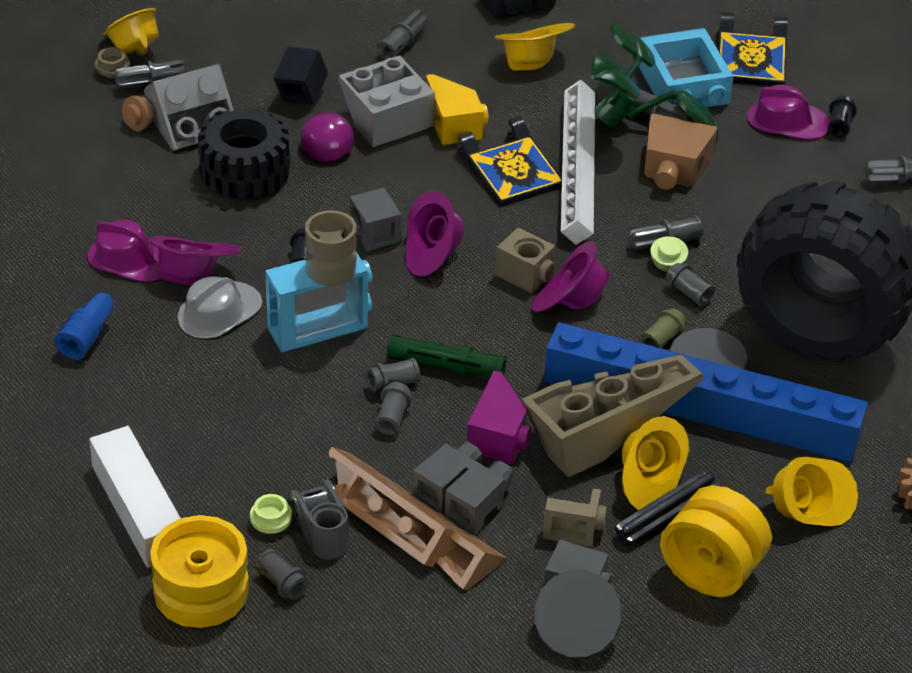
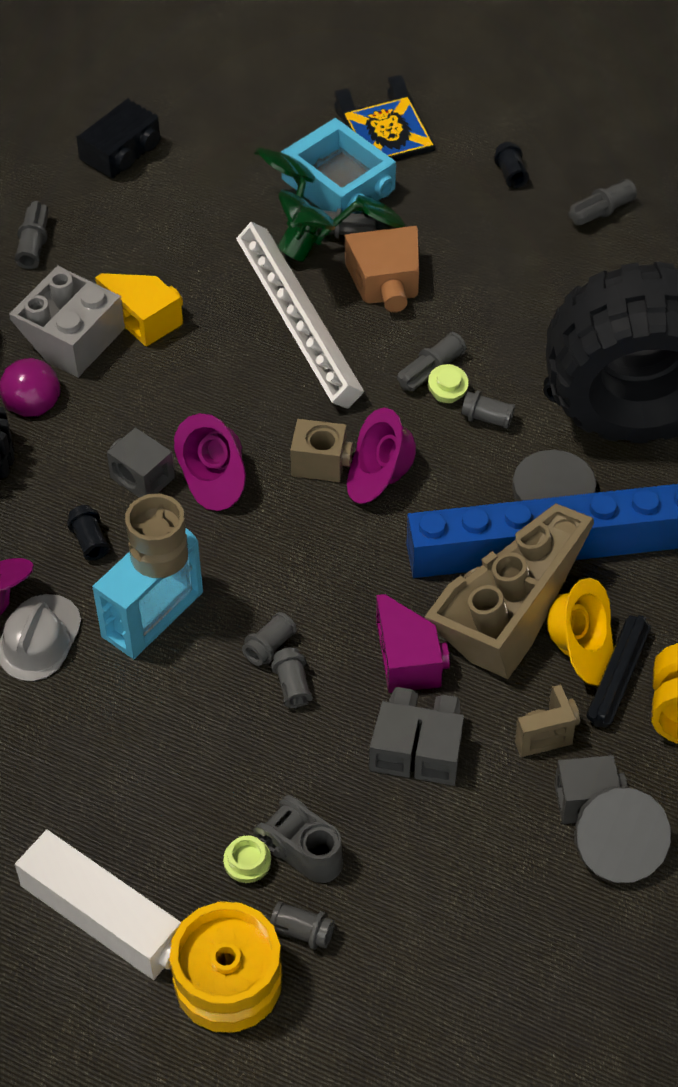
camera: 25 degrees left, 10 degrees up
(411, 522) = (390, 800): medium nougat wedge -> none
(463, 360) = (309, 594): dark green pin -> none
(513, 168) = (234, 346): flag -> none
(532, 48) = (175, 197): yellow piece -> none
(669, 325) = (497, 464): olive pin -> none
(787, 113) = (460, 181): magenta piece -> none

